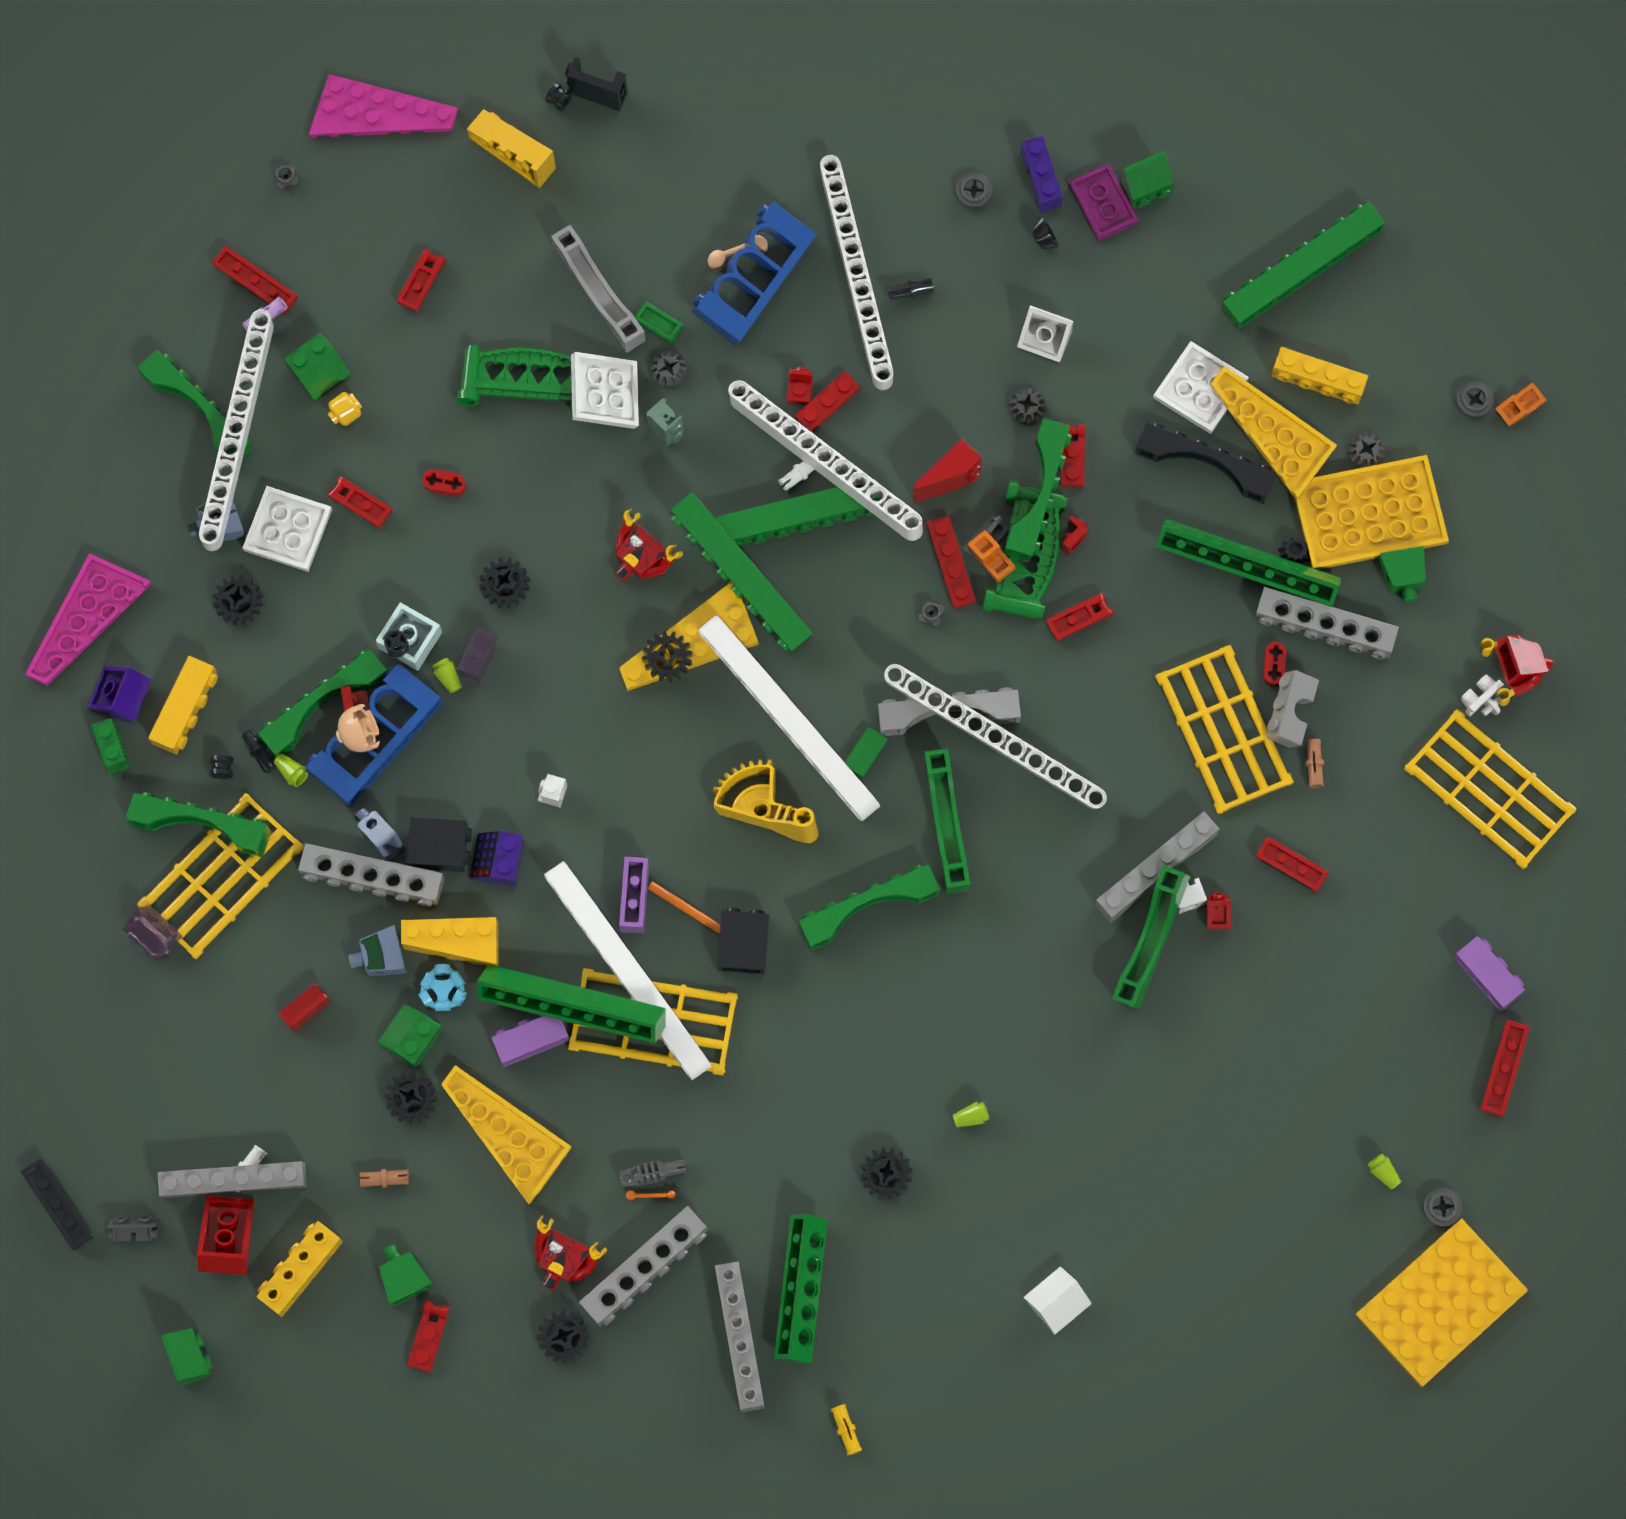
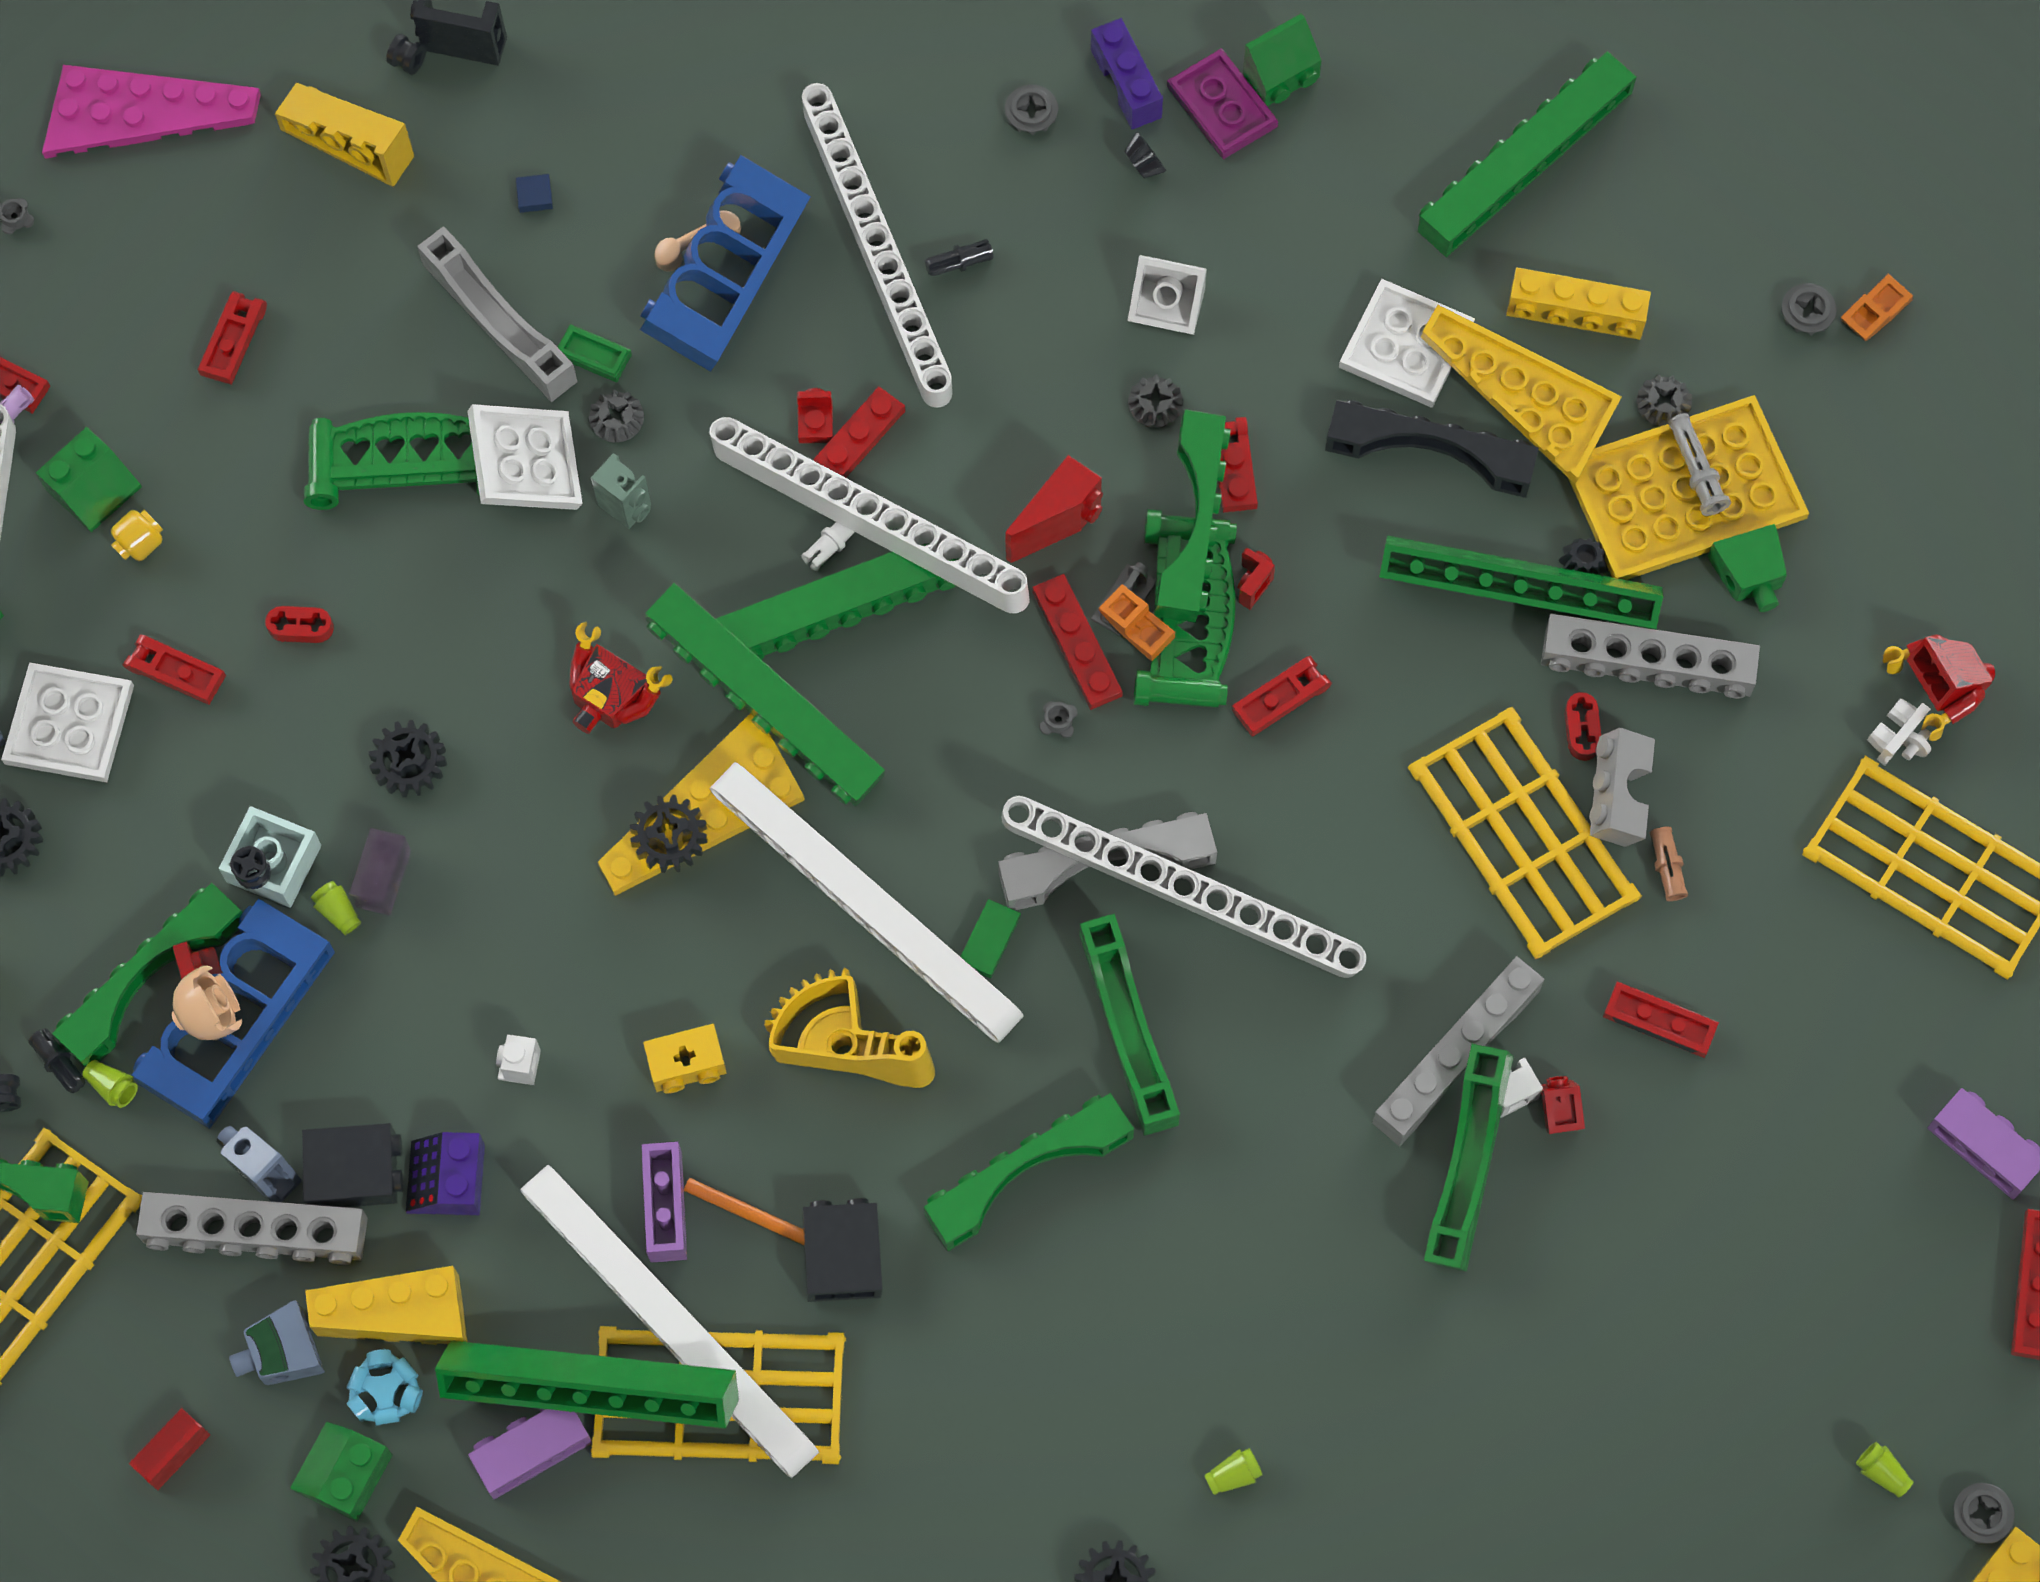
camera: 10 degrees left, 5 degrees down
(633, 205) = (534, 193): none -> dark blue tile
(647, 800) = (666, 1055): none -> yellow brick
(1380, 509) = (1704, 479): none -> light grey pin

